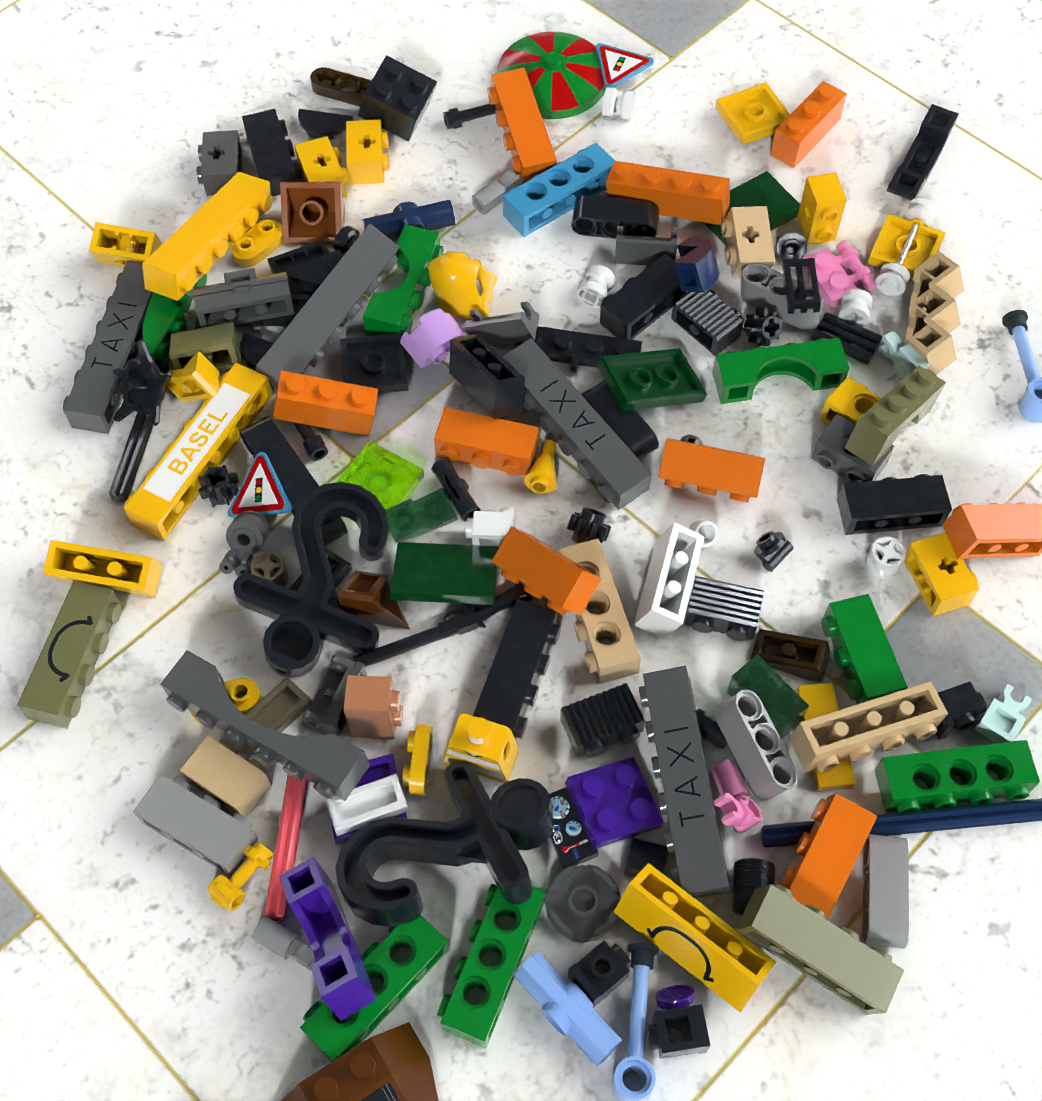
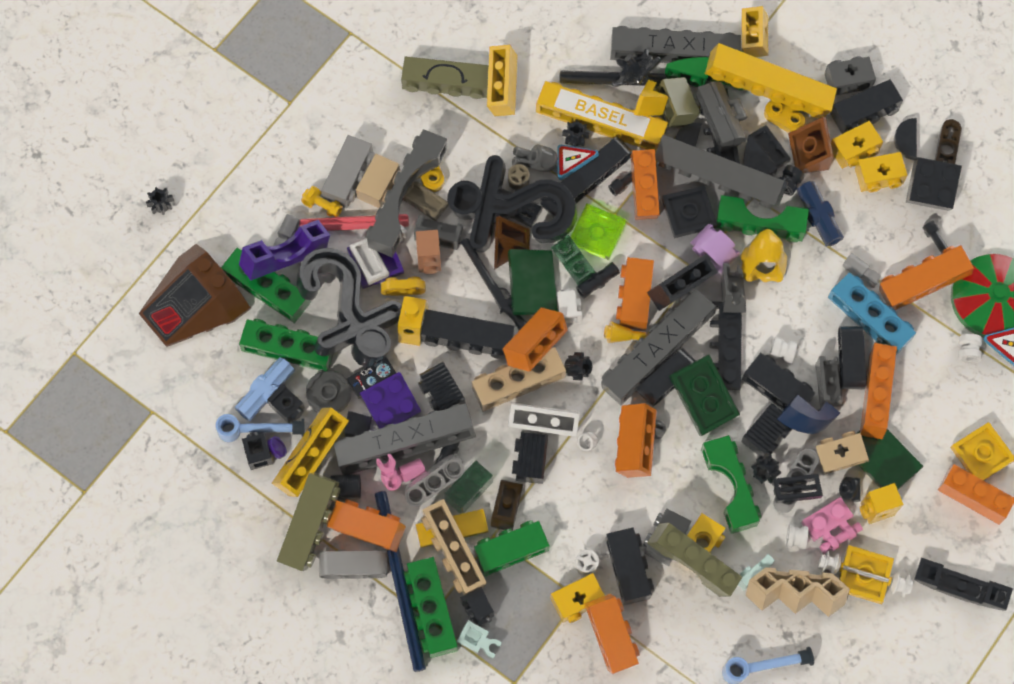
camera: 80 degrees right, 10 degrees up
(772, 549) = (582, 488): black plate -> none
(849, 334) = (779, 515): black tile -> none

